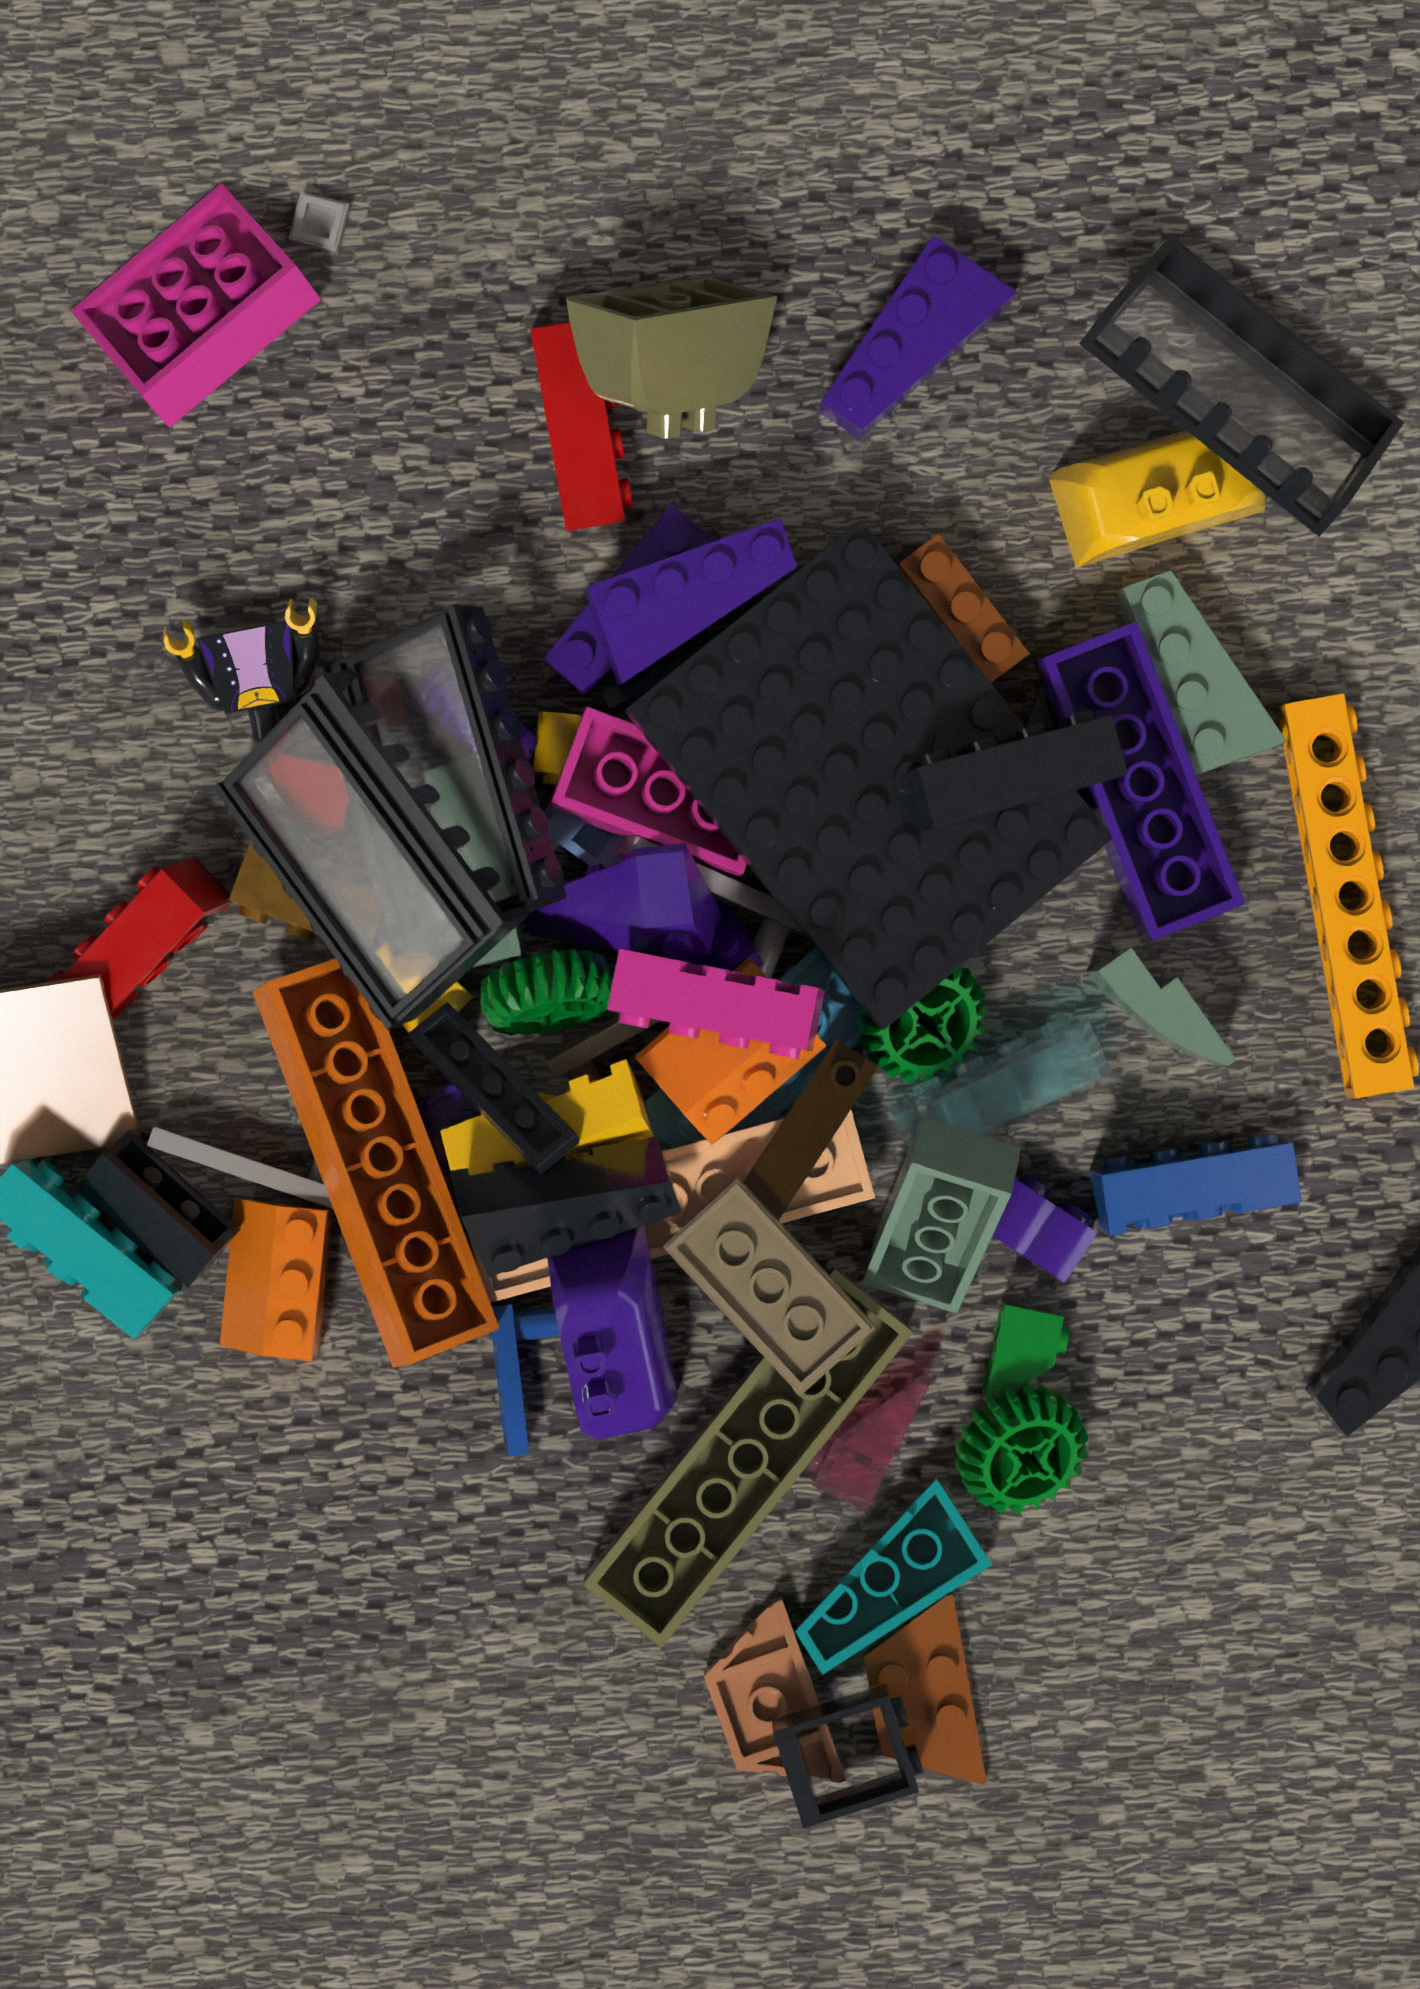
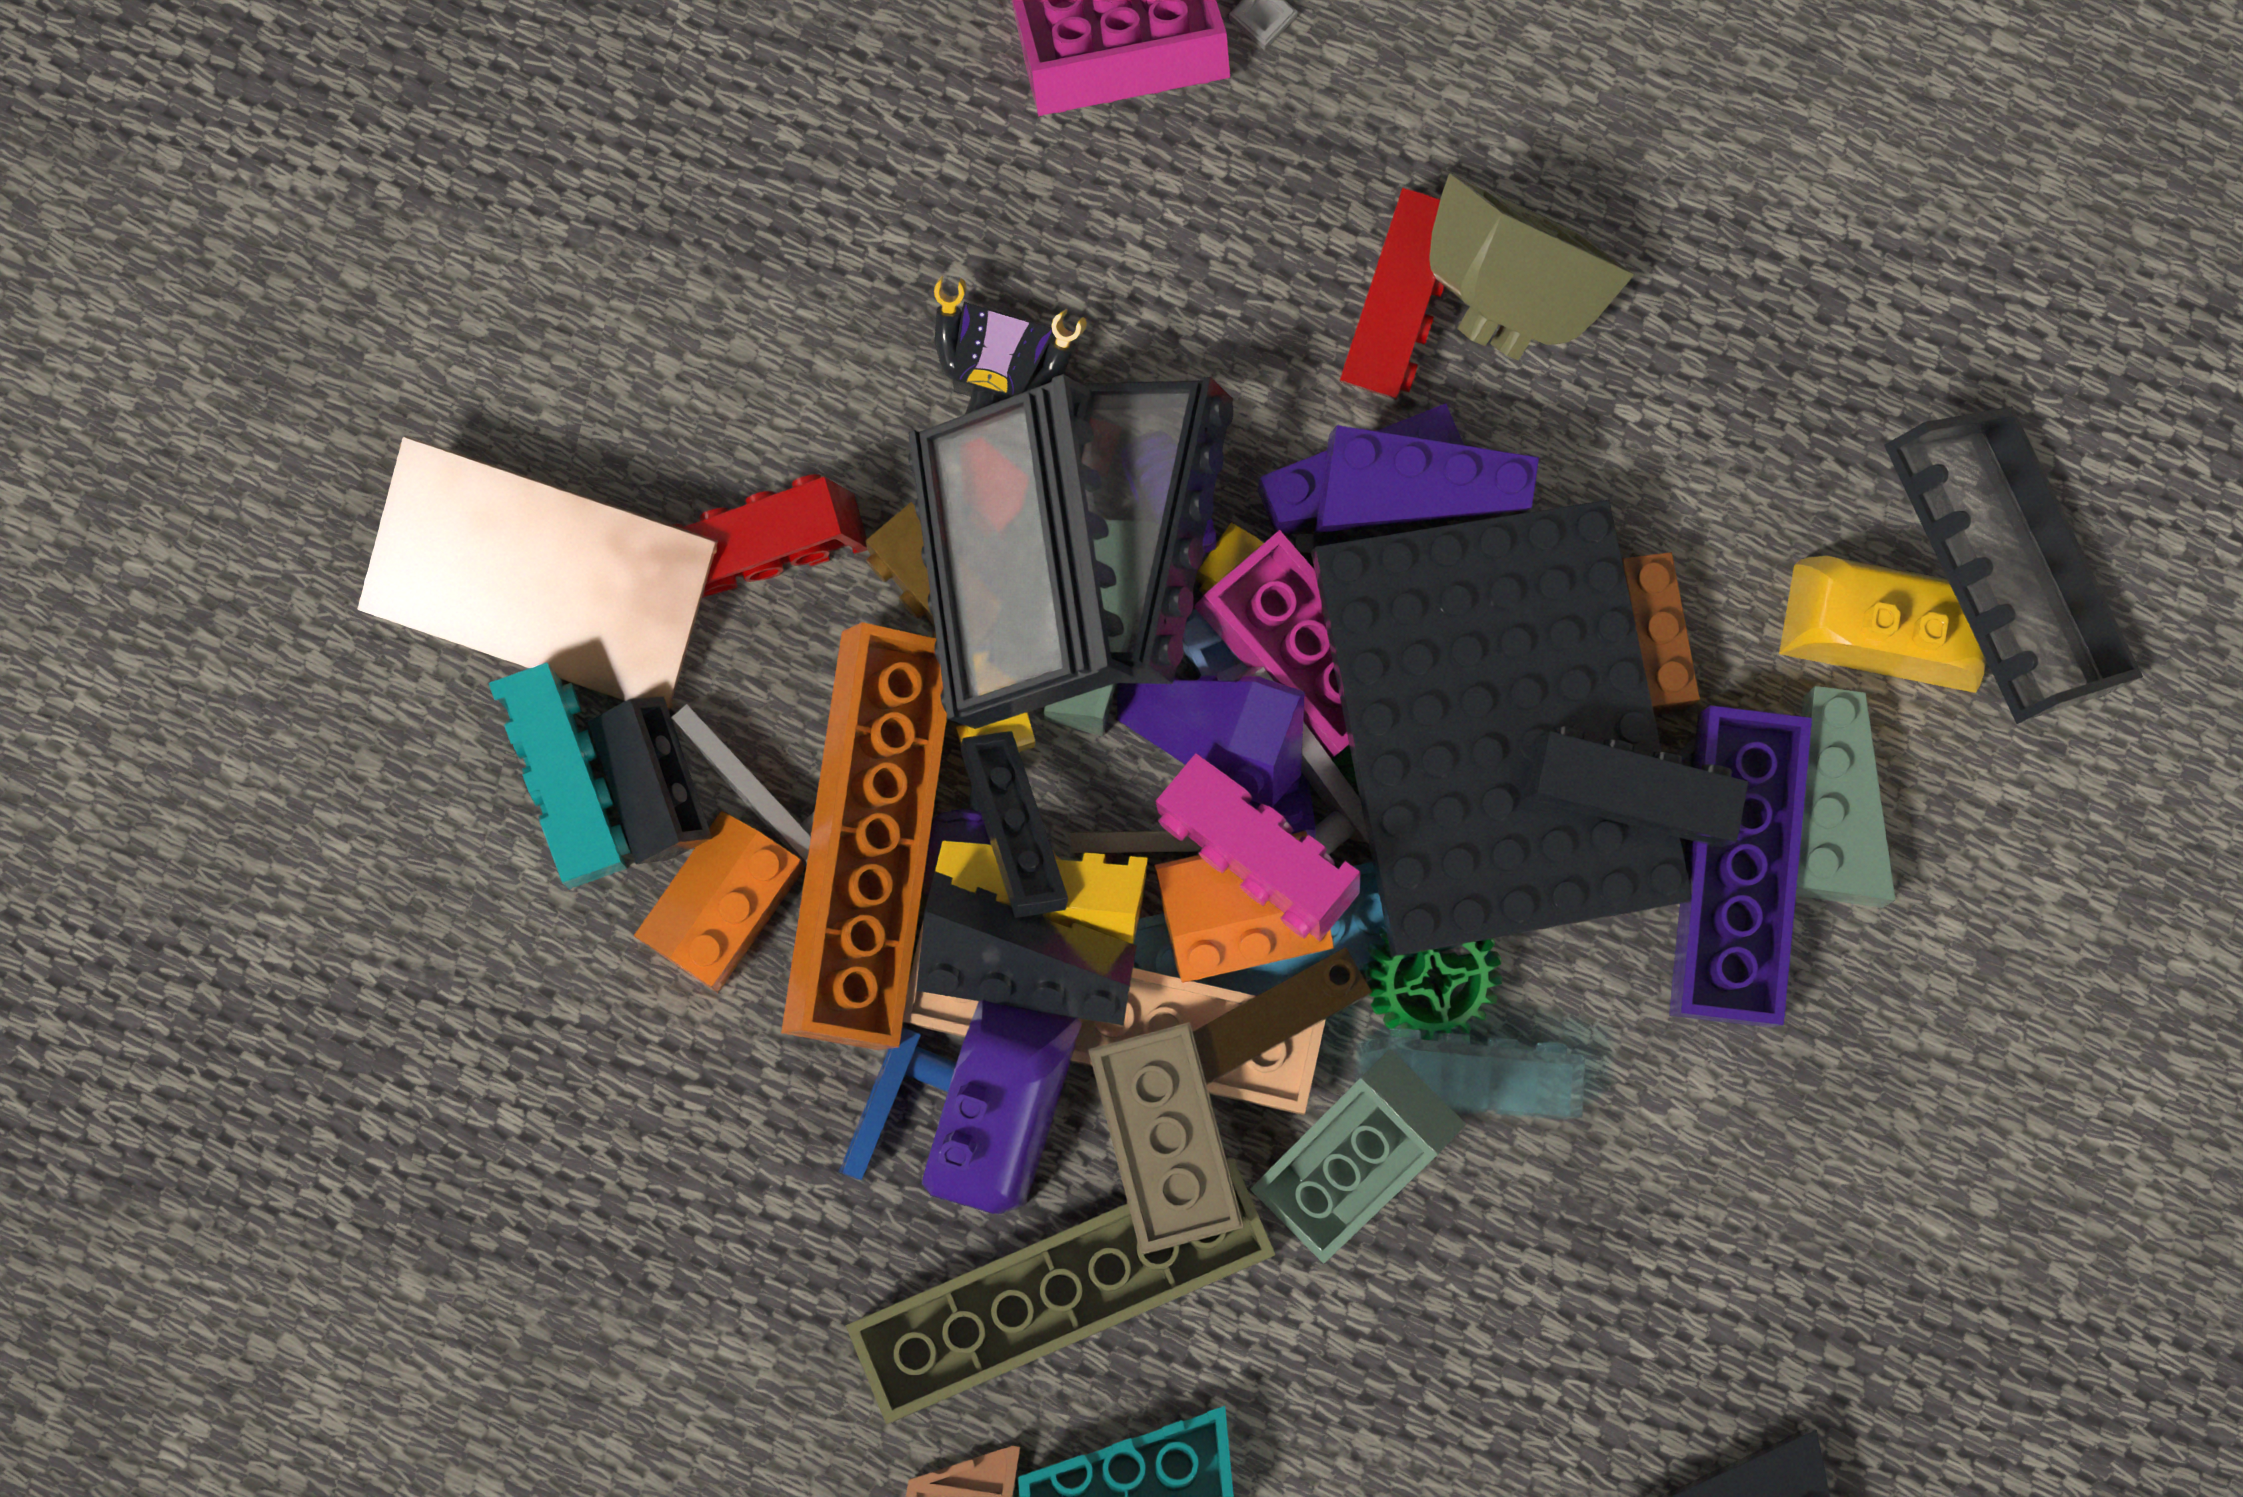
camera: 25 degrees right, 10 degrees down
(546, 992) = (1104, 770): green gear -> none
(864, 1447) = (1169, 1346): clear pink slope -> none
(922, 326) = (1745, 372): dark purple wedge -> none
(1021, 1448) = (1300, 1446): green gear -> none
(1022, 1347) = (1368, 1330): green slope -> none
(1043, 1231) = (1439, 1227): dark purple brick -> none
(1160, 1007) = (1656, 1083): sand green slope -> none
(1194, 1184) = (1605, 1263): blue wedge -> none
(1325, 875) = (1814, 1243): light orange brick -> none

